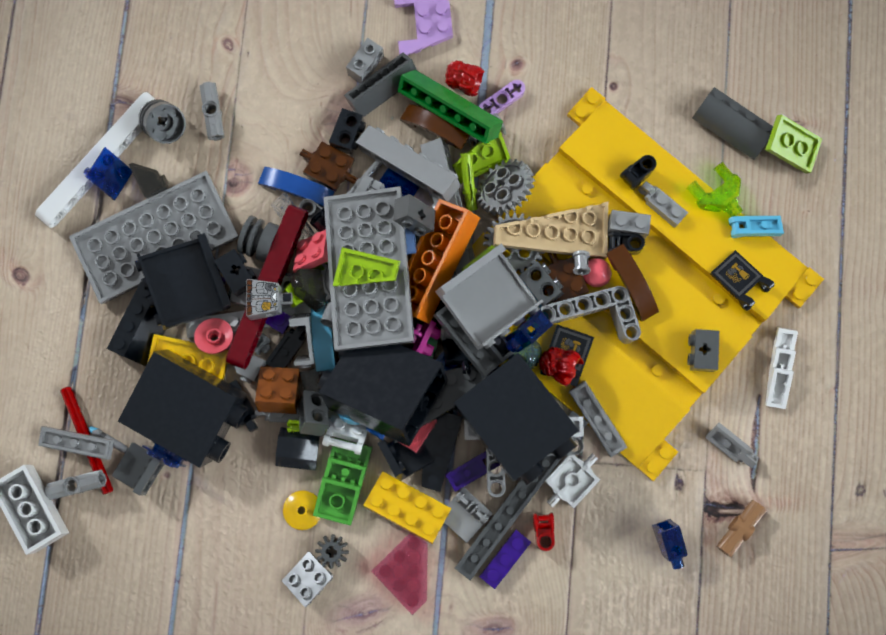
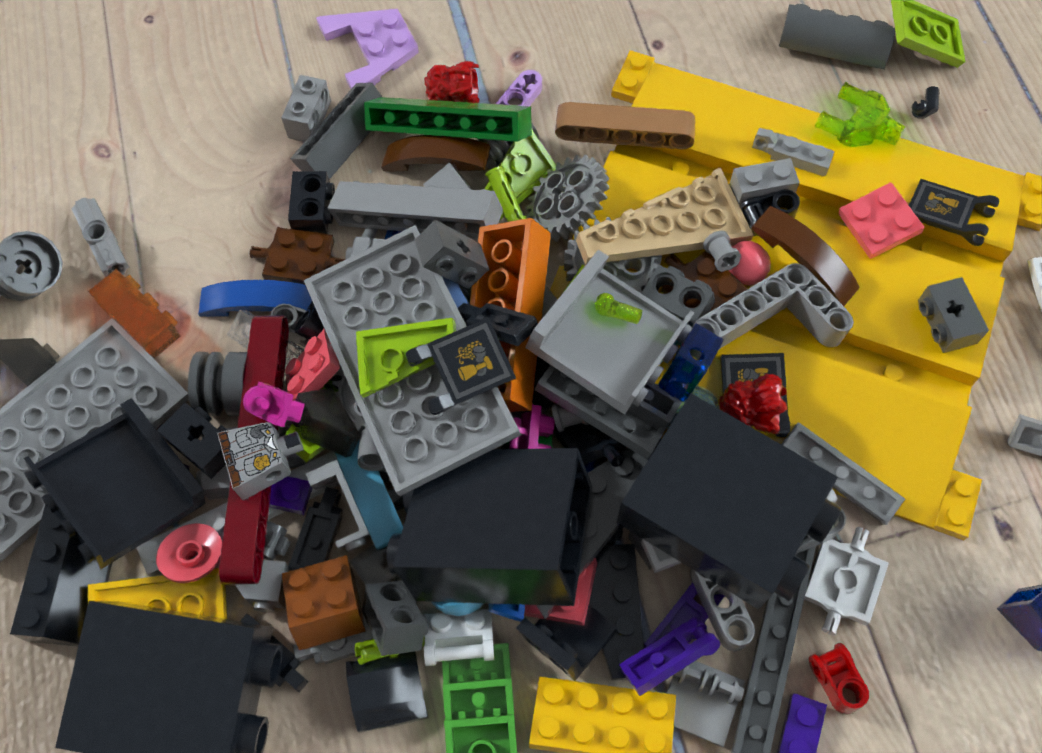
camera: 20 degrees left, 15 degrees down
(220, 171) = (136, 312): none -> clear orange brick
(282, 272) = (272, 404): none -> dark pink hips
(398, 291) = (468, 363): none -> black flag
(425, 270) = (508, 324): none -> black hinge
(455, 487) = (669, 655): none -> dark purple plate
(499, 286) = (611, 308): none -> clear neon green arm
(560, 150) = (625, 125): none -> medium nougat beam
(637, 173) = (743, 119): black piece -> none
(692, 272) = (881, 220): none -> coral plate
(756, 226) = (930, 143): medium azure plate -> none
(770, 197) = (929, 105): none -> black arm

